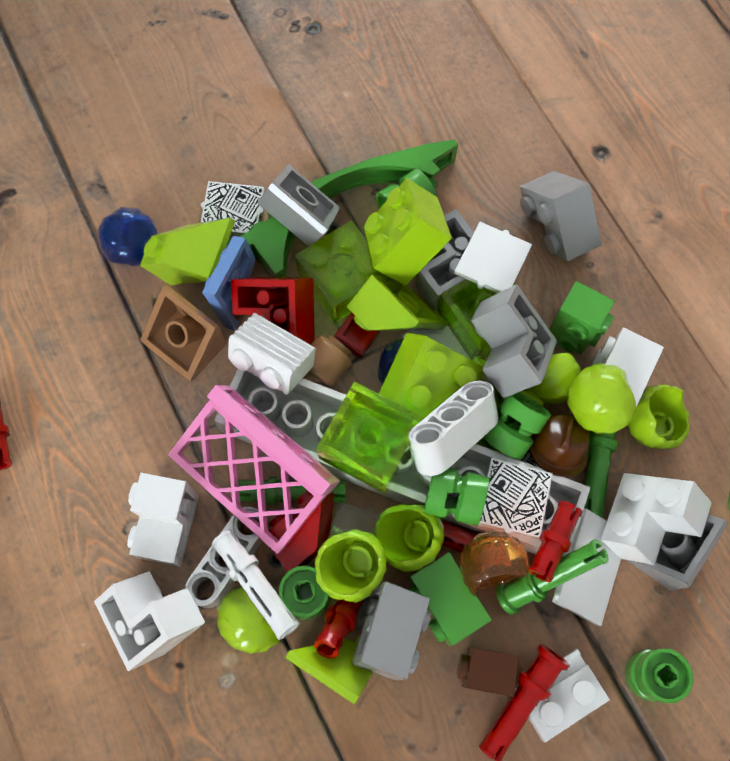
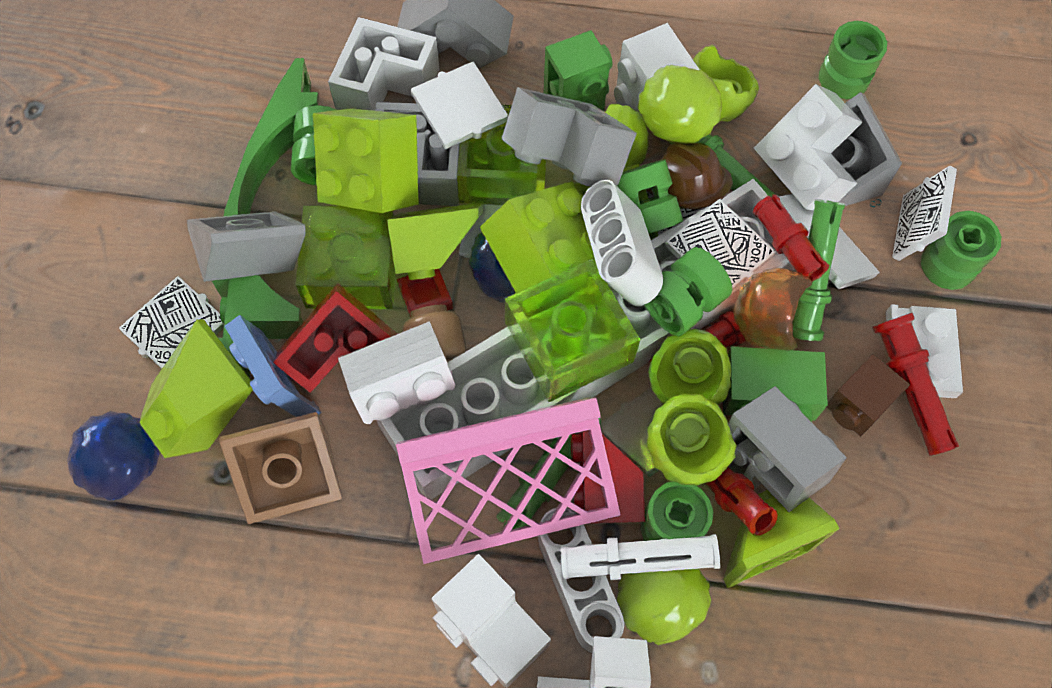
camera: 55 degrees left, 5 degrees down
(492, 187) = (381, 60): none -> white brick
(667, 630) = (924, 213): none -> white piece

